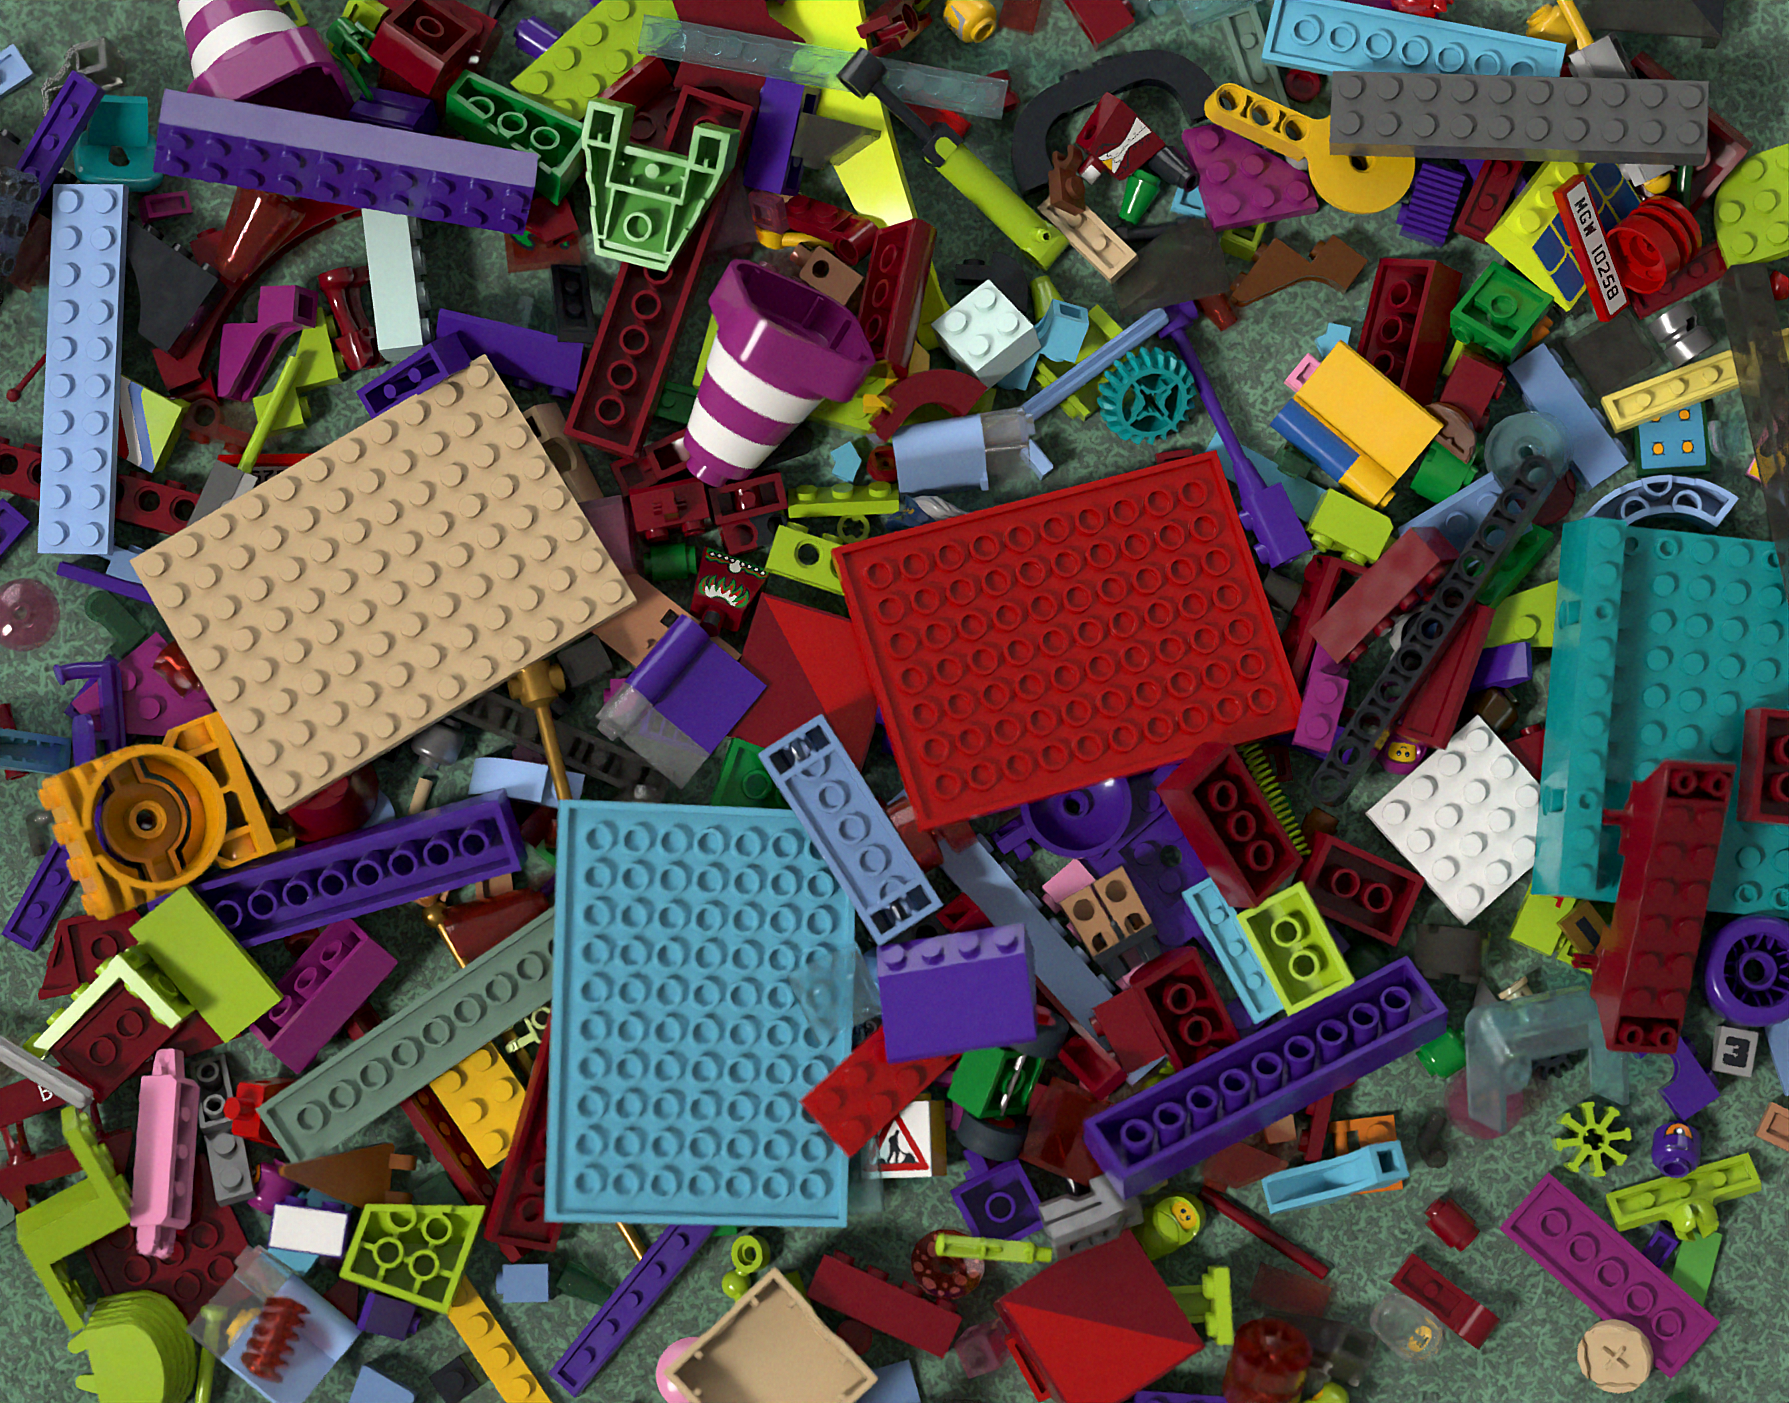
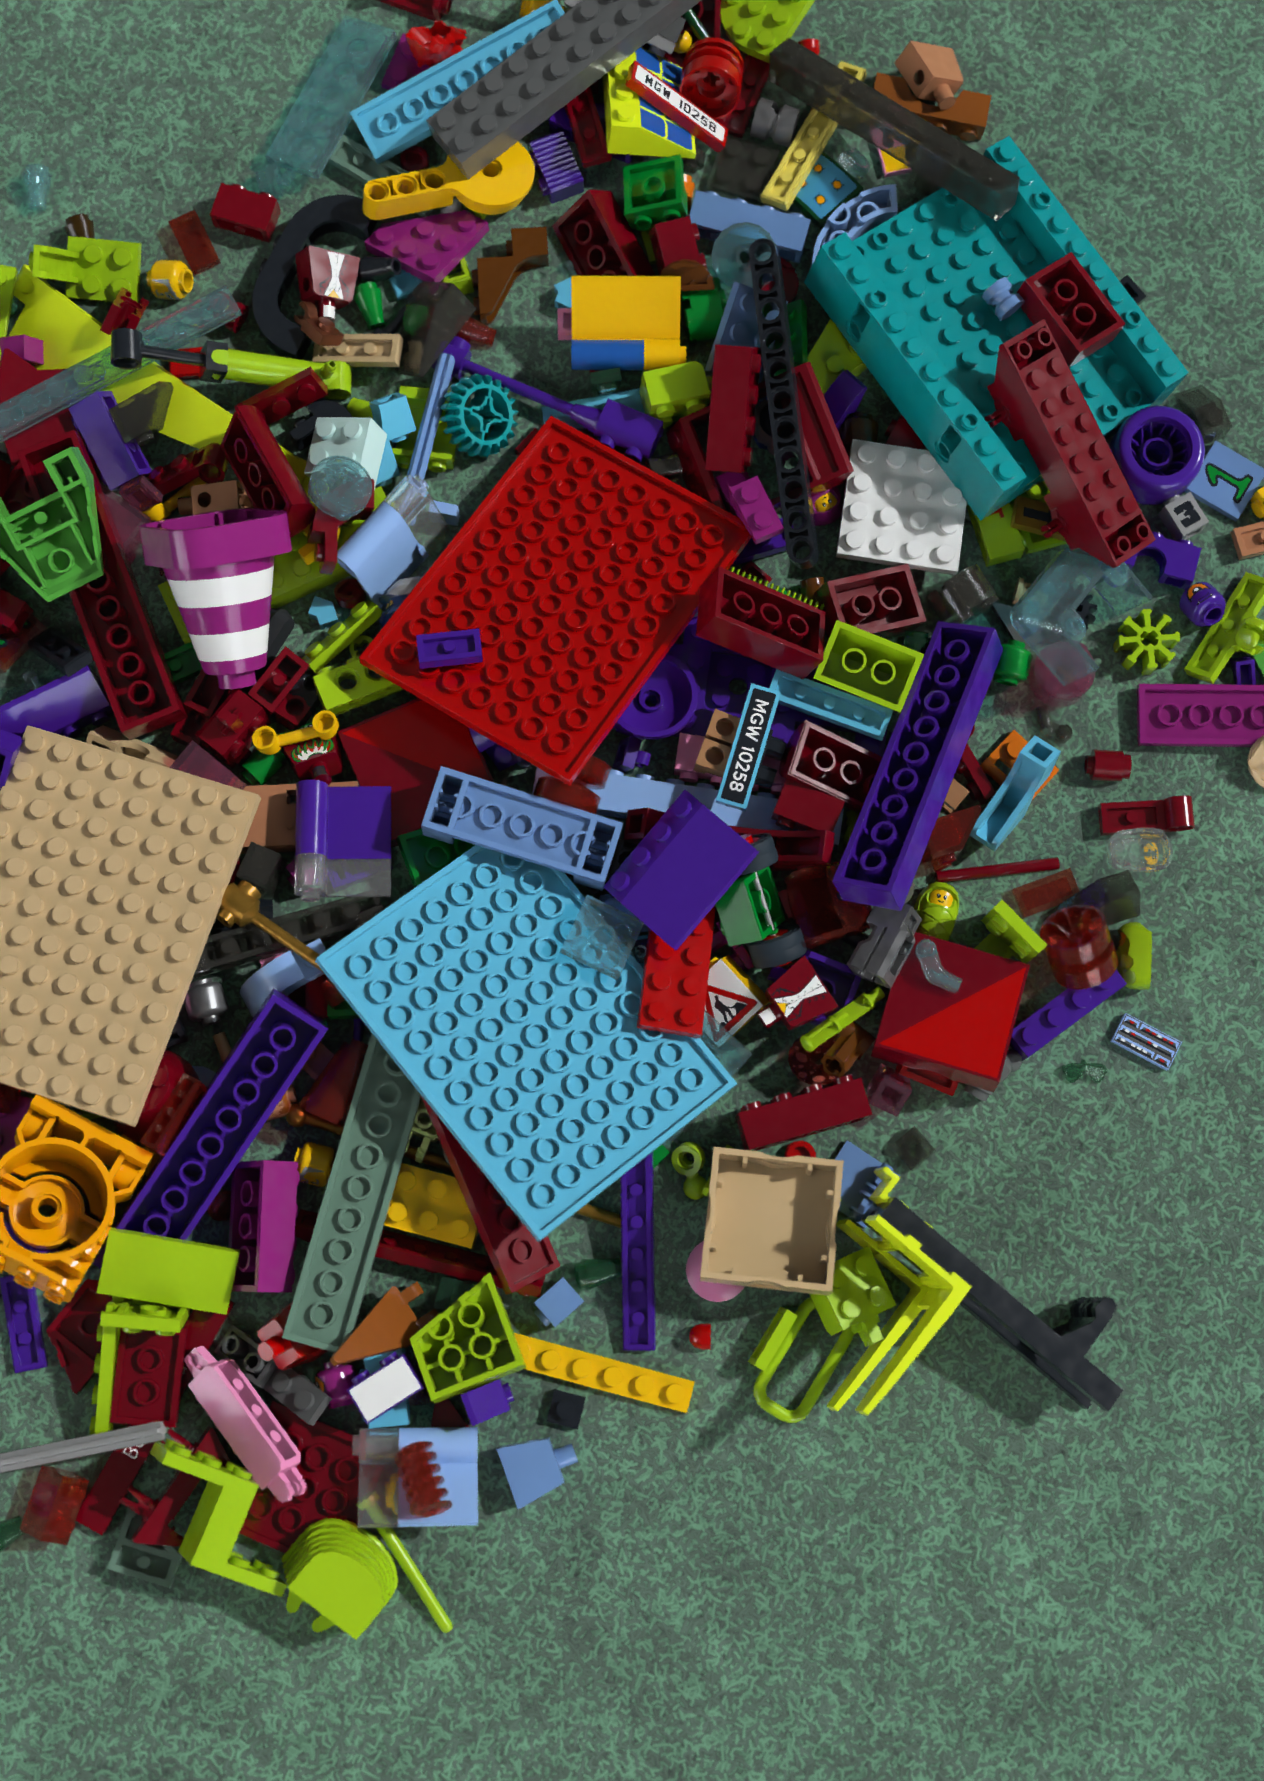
camera: 45 degrees left, 5 degrees down
(323, 829) = (173, 1114): none -> clear red piece
(414, 973) = (314, 1163): none -> yellow head
(690, 551) = (268, 742): none -> yellow bar
(919, 611) = (449, 648): none -> dark purple plate
(947, 374) = (340, 487): none -> clear light blue tile
(966, 1196) = (797, 998): none -> dark red torso
(975, 226) = (288, 395): none -> dark red plate
(978, 1279) = (848, 1046): none -> reddish brown piece
(1111, 1276) = (932, 968): none -> clear light blue arm
(1120, 929) = (748, 747): none -> tile
(1731, 704) = (1001, 295): none -> medium blue wheel

